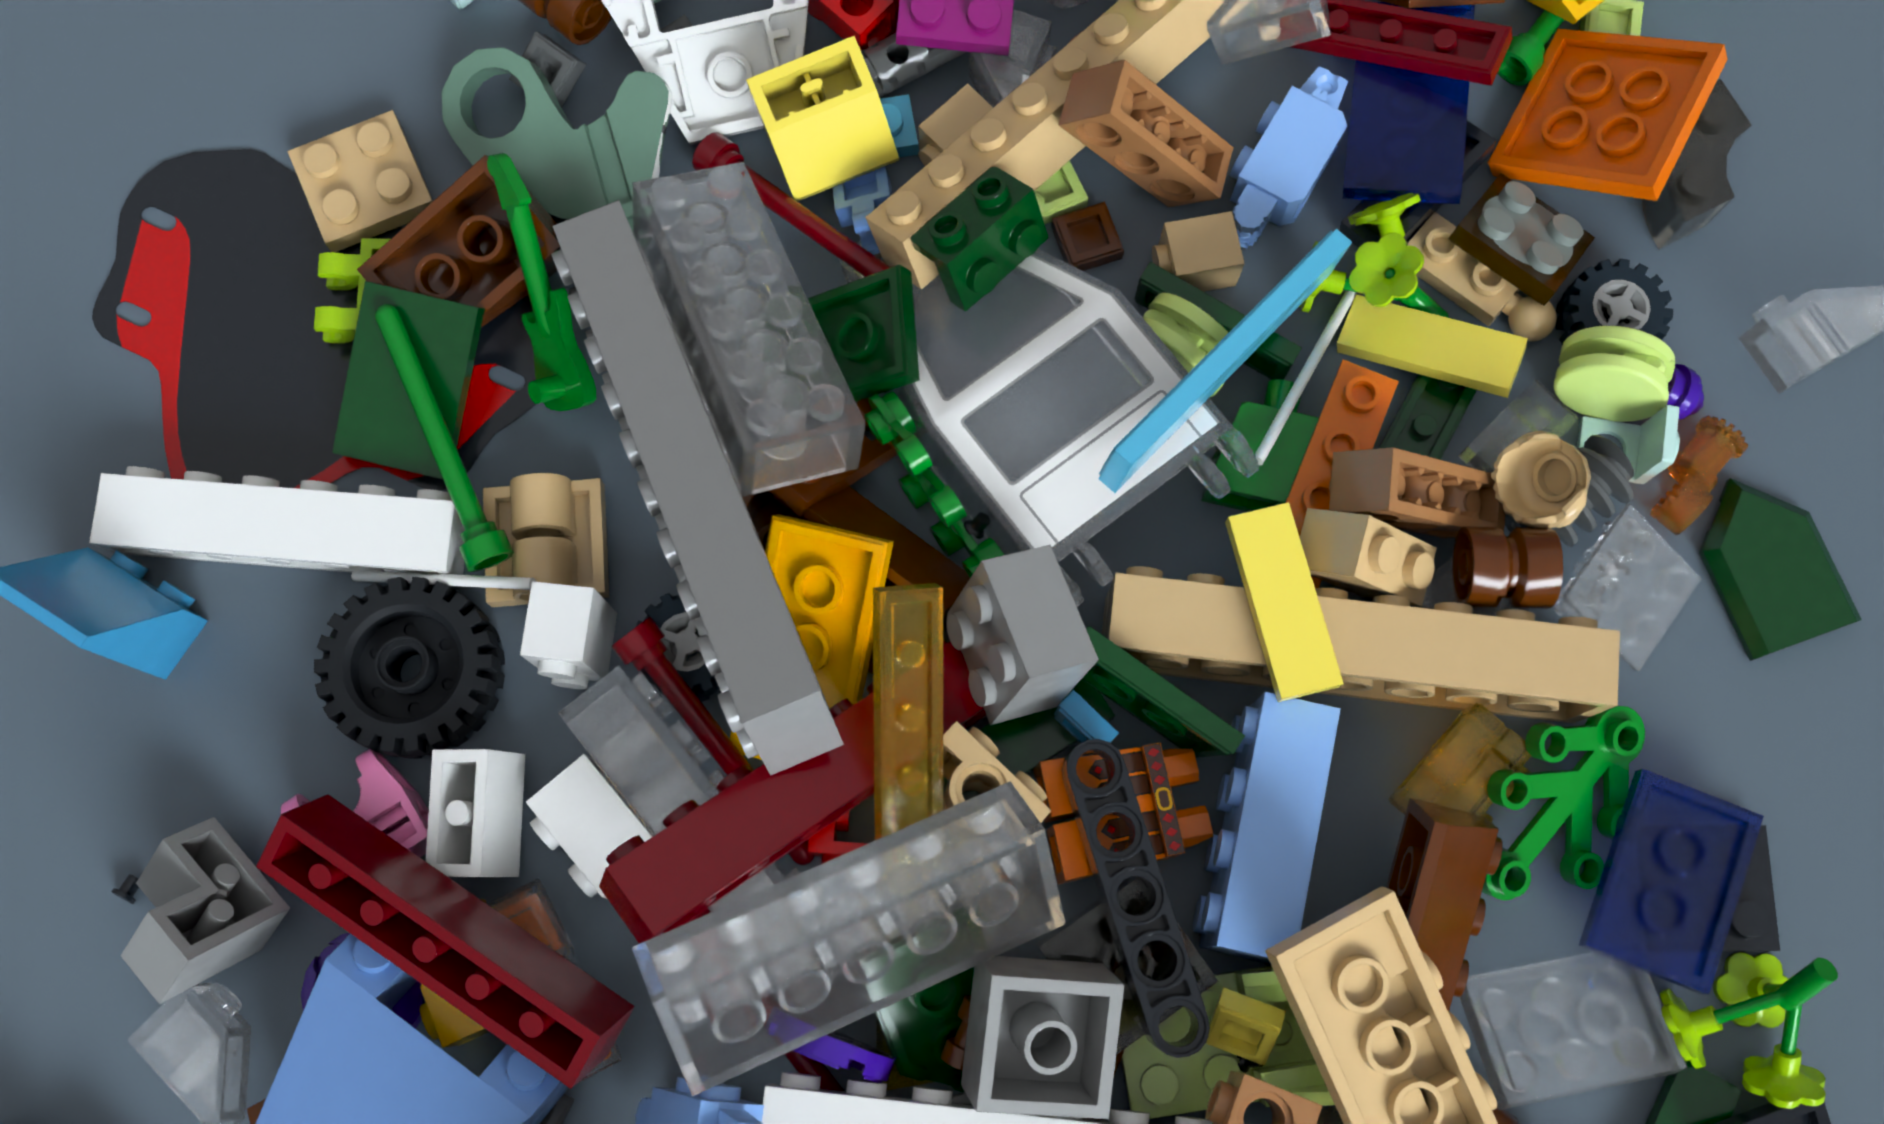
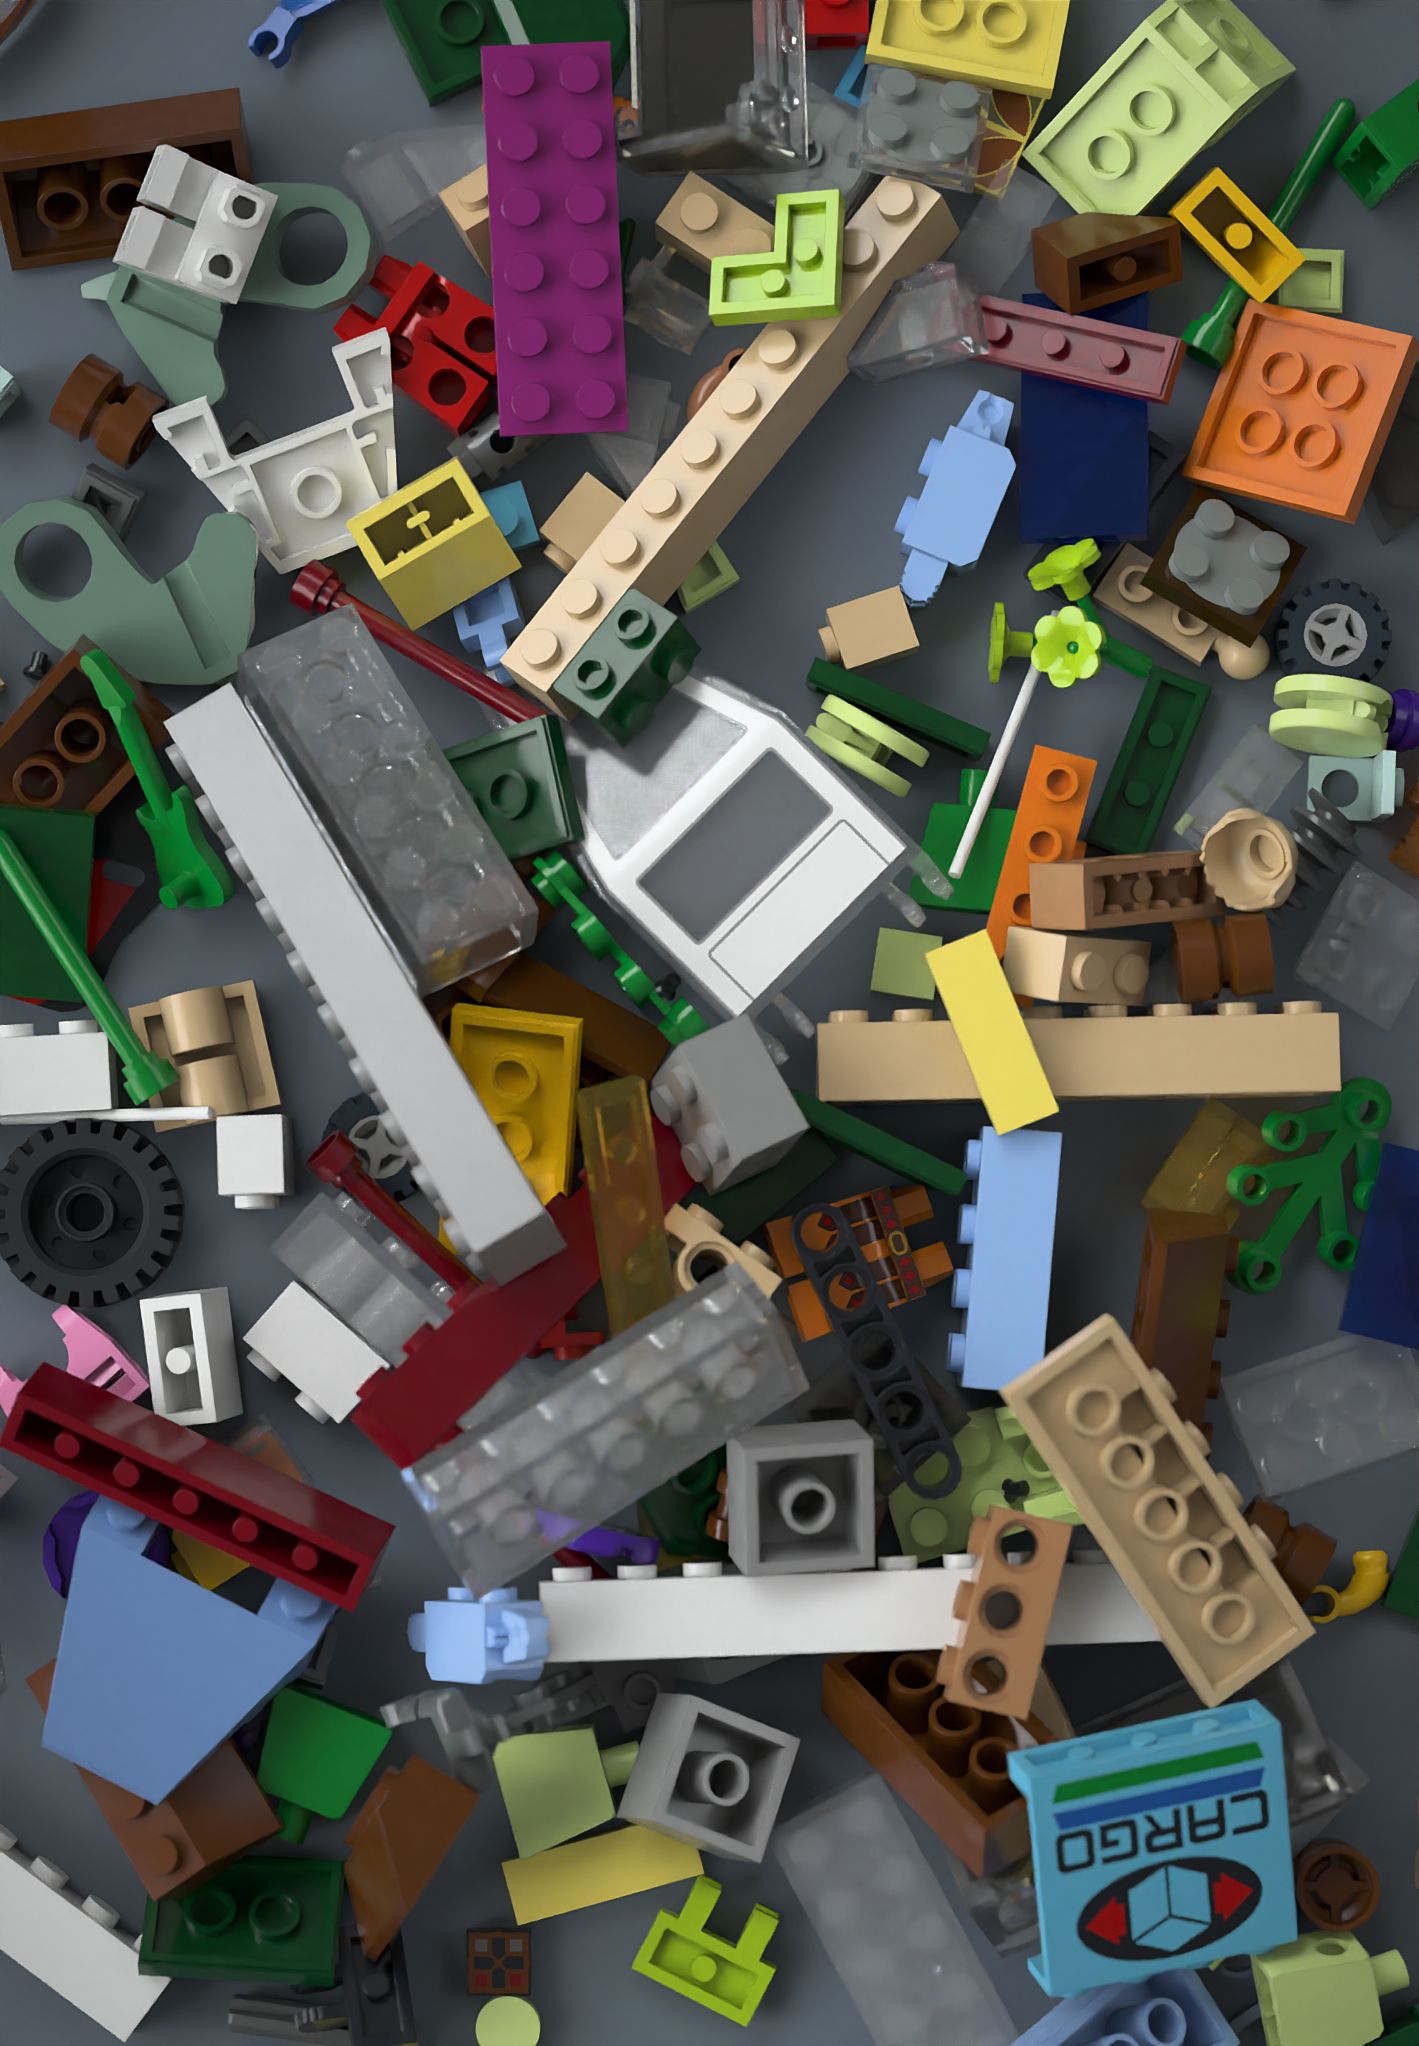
camera: 10 degrees left, 10 degrees up
(1083, 720) = (808, 1176): dark azure tile -> none
(1087, 237) = (744, 623): reddish brown tile -> none
(1146, 134) = (793, 519): medium nougat brick -> none
(1195, 546) = (901, 964): none -> yellowish green tile
(1222, 361) = (904, 781): medium azure tile -> none
(1245, 1026) = (1001, 1460): light yellow tile -> none
(1432, 346) = (1141, 709): light yellow tile -> none

